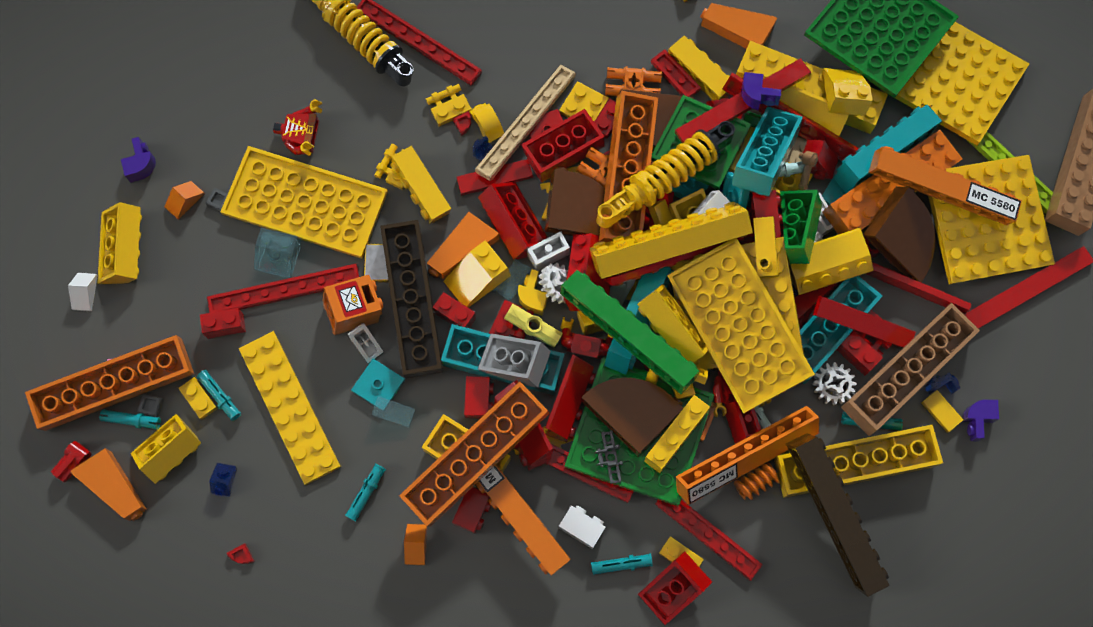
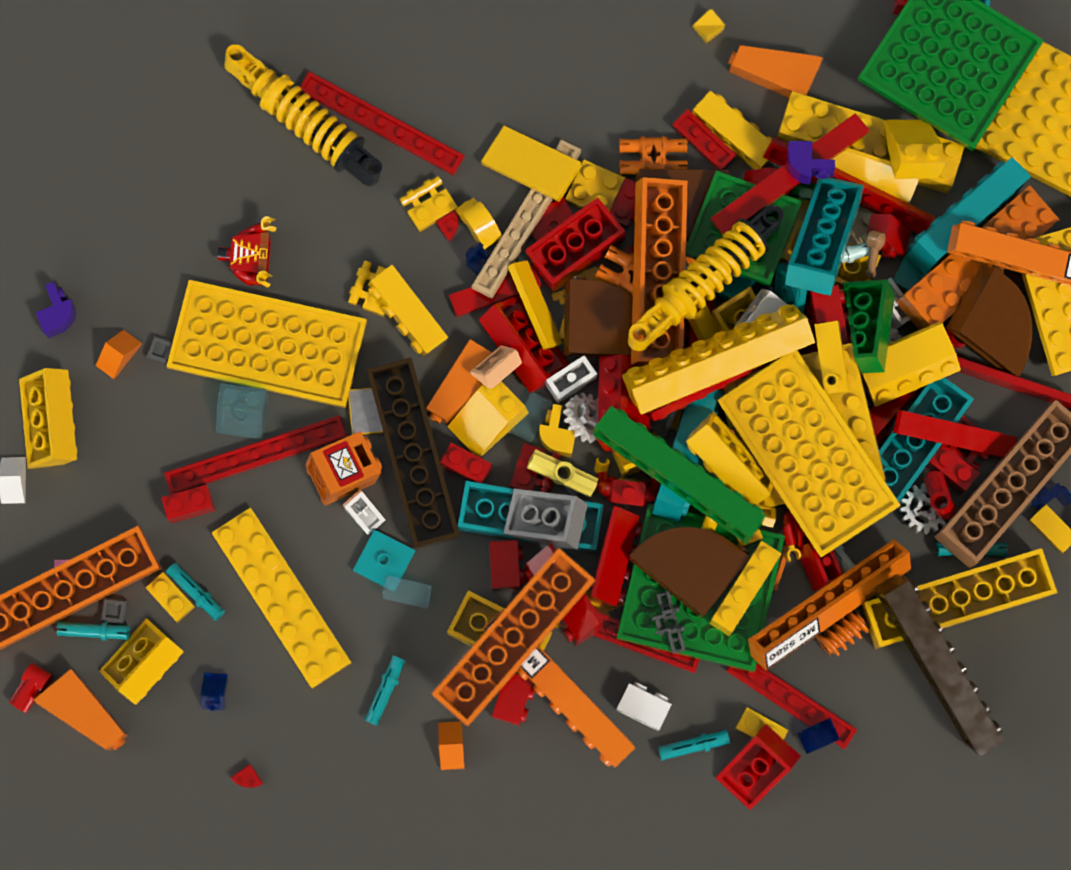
camera: 10 degrees left, 5 degrees up
(488, 234) = (497, 366): none -> light nougat slope
(525, 189) = (535, 304): none -> yellow tile
(534, 79) = (531, 163): none -> yellow tile
(729, 566) = (818, 735): none -> clear blue bracket
(848, 372) = (939, 494): none -> red piece

